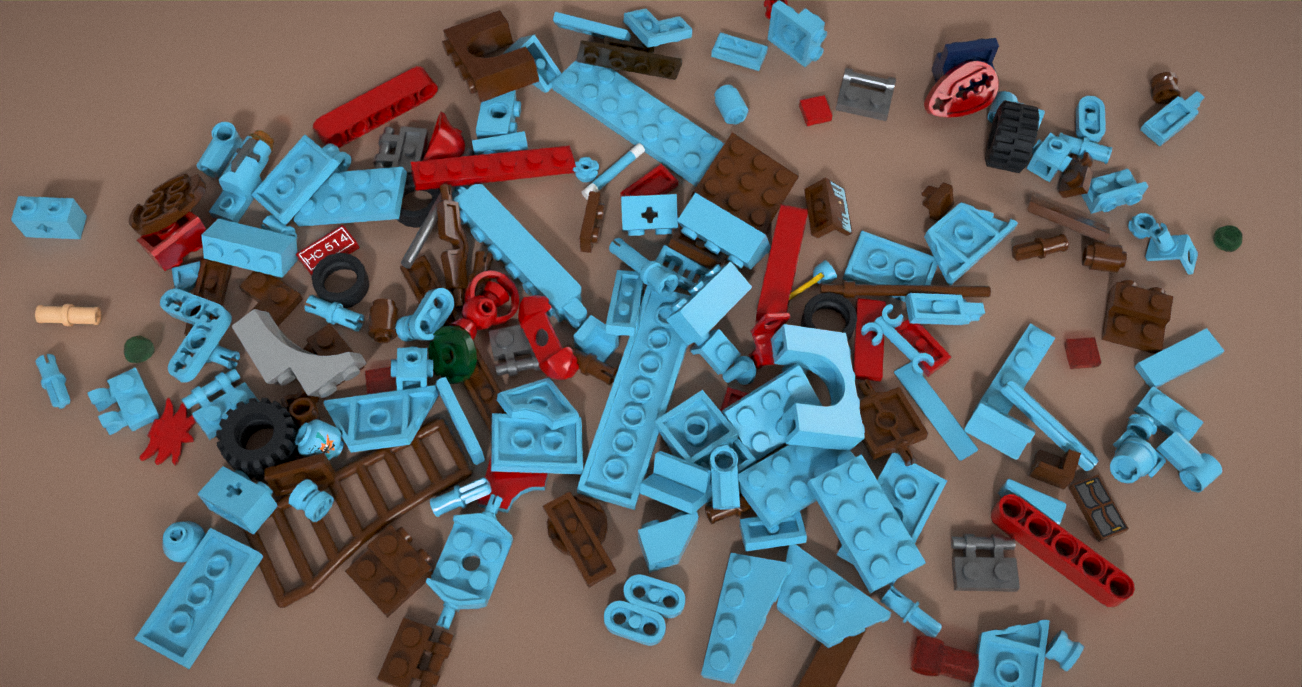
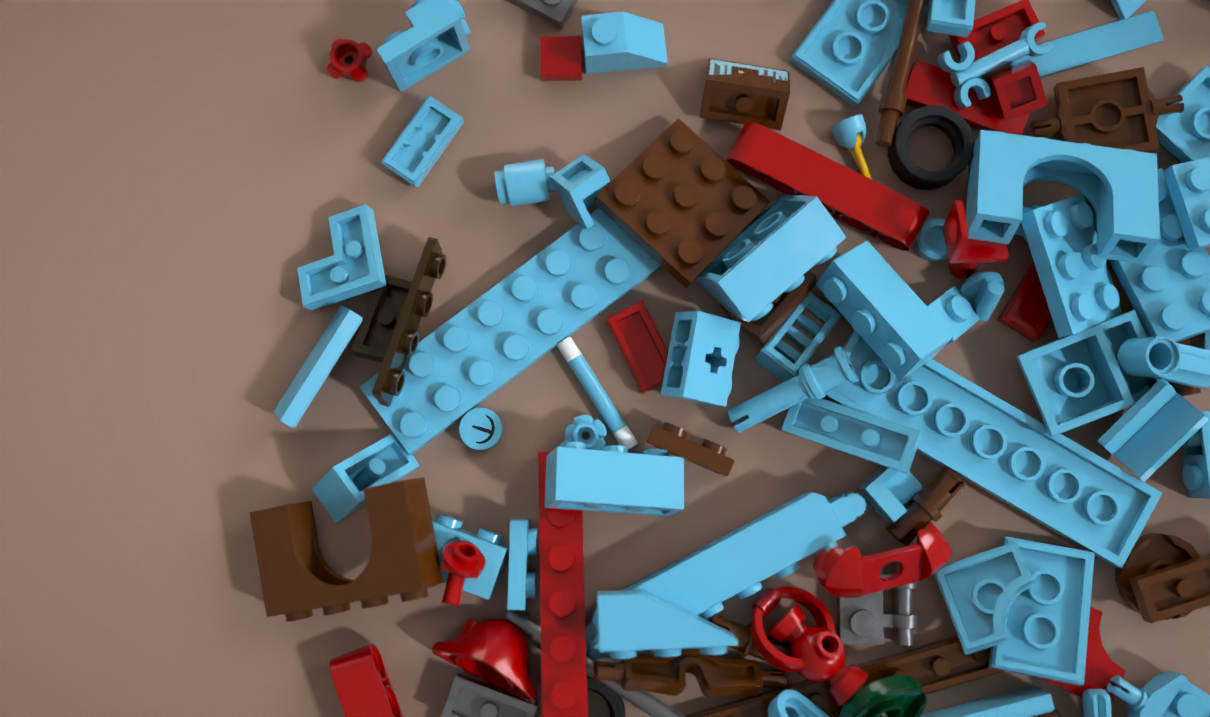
camera: 75 degrees left, 20 degrees up
(481, 206) = (645, 622): none -> medium azure slope
(494, 109) = (461, 561): none -> red plate
(561, 178) = (614, 480): none -> medium azure brick
(576, 116) = (481, 429): none -> medium azure tile
(735, 123) = (578, 187): none -> medium azure panel
(835, 135) = (622, 42): none -> medium azure slope
(886, 362) = (1018, 89): none -> red panel

